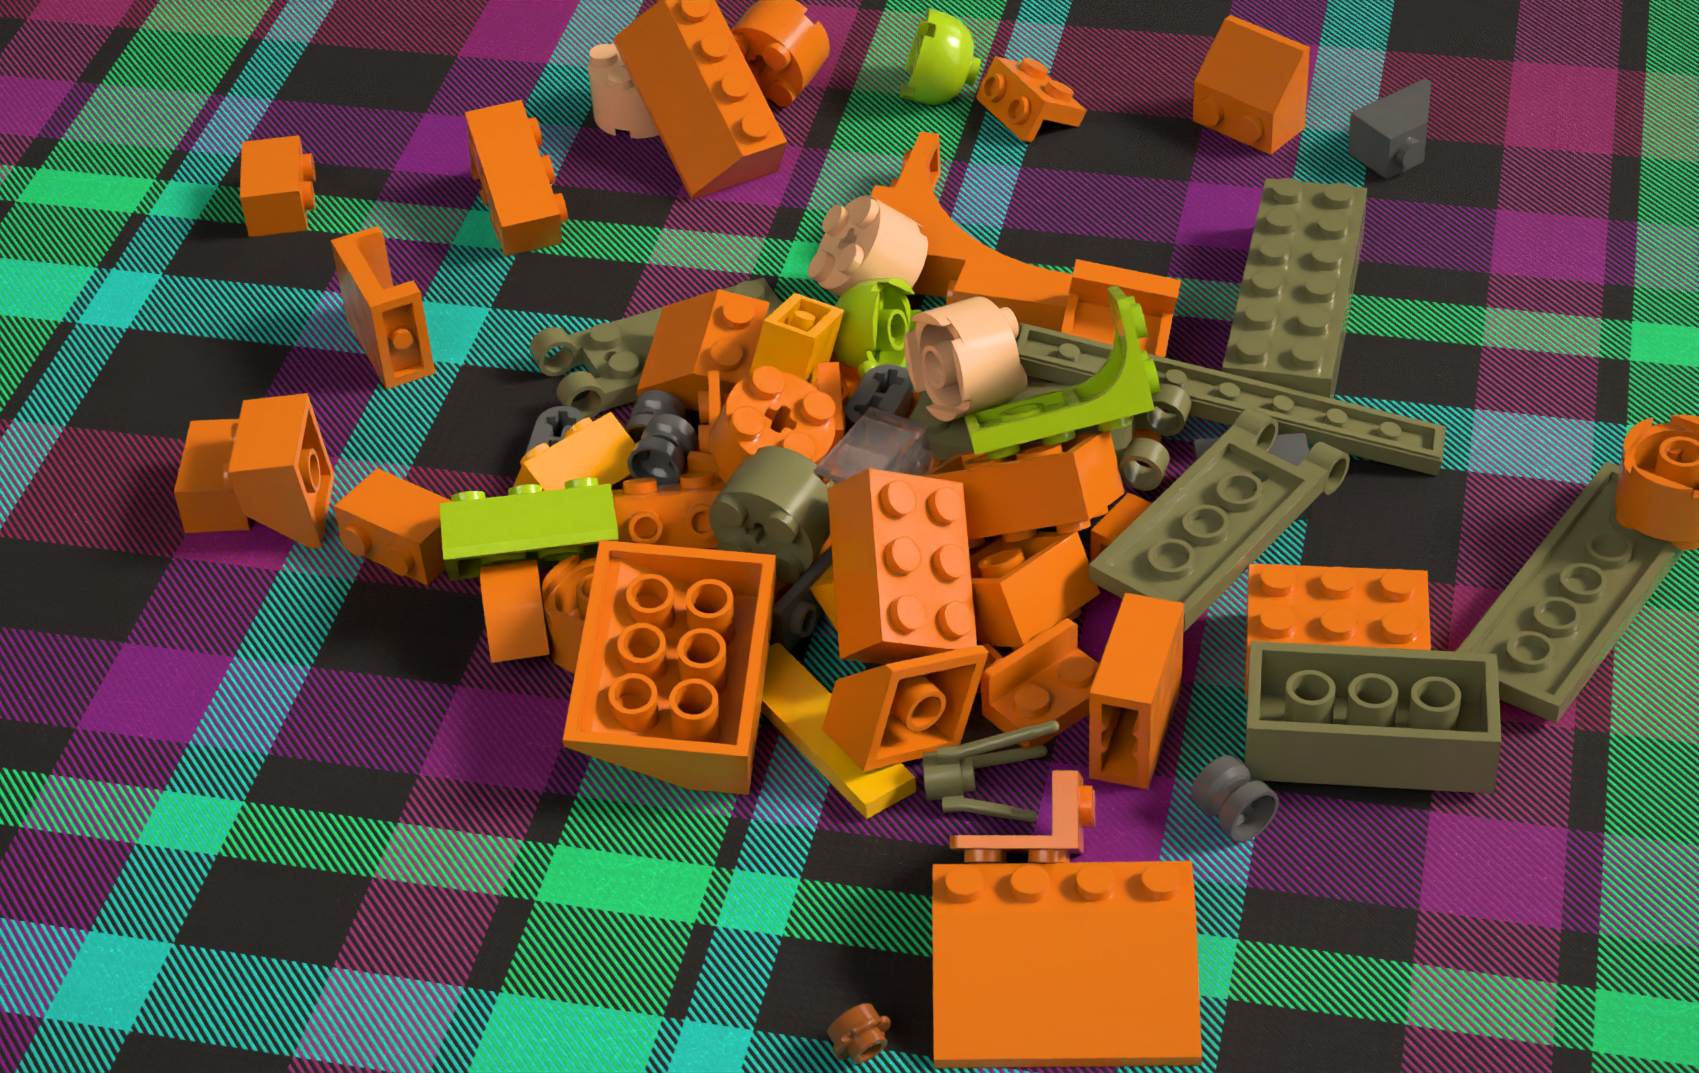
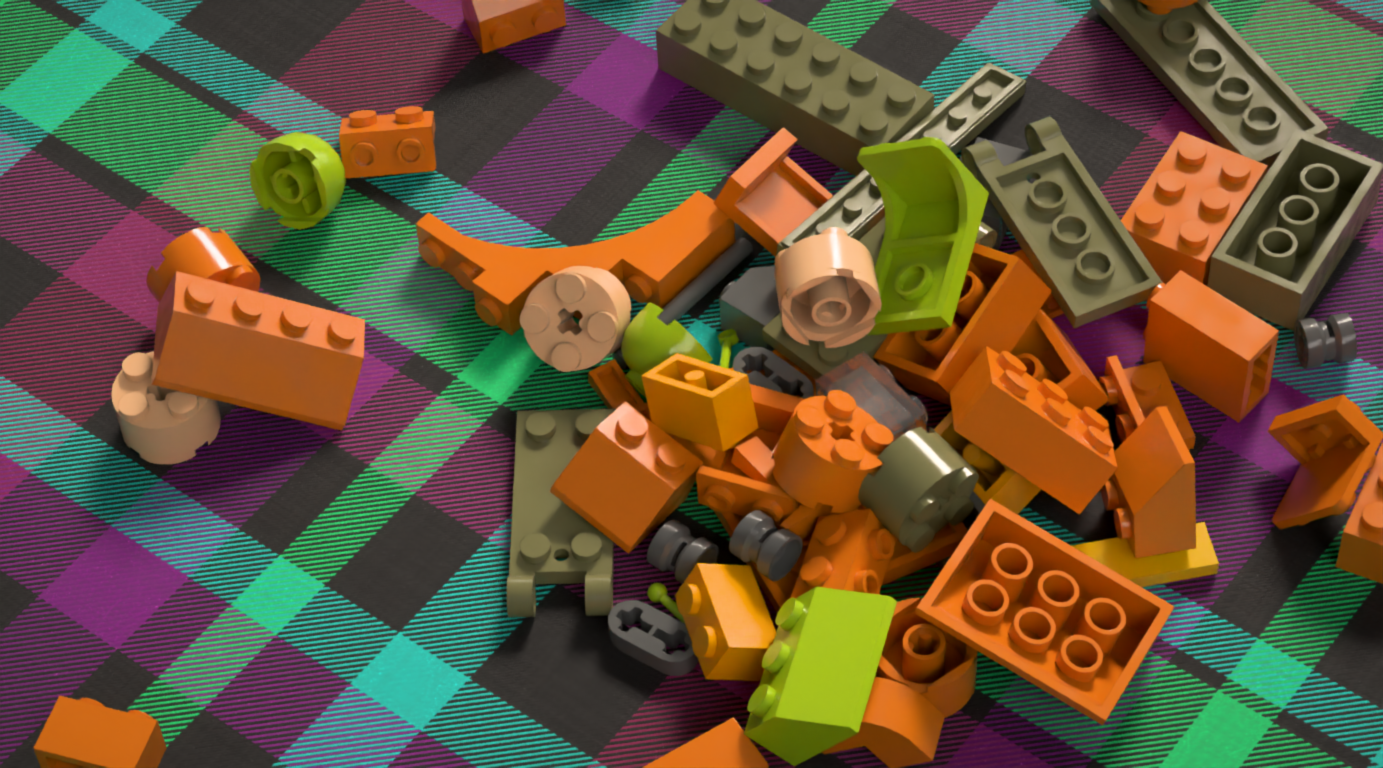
camera: 65 degrees left, 10 degrees up
(382, 316) = (398, 709): orange panel -> none
(514, 177) = (257, 543): orange wedge -> none
(952, 772) = (1215, 494): olive plant -> none

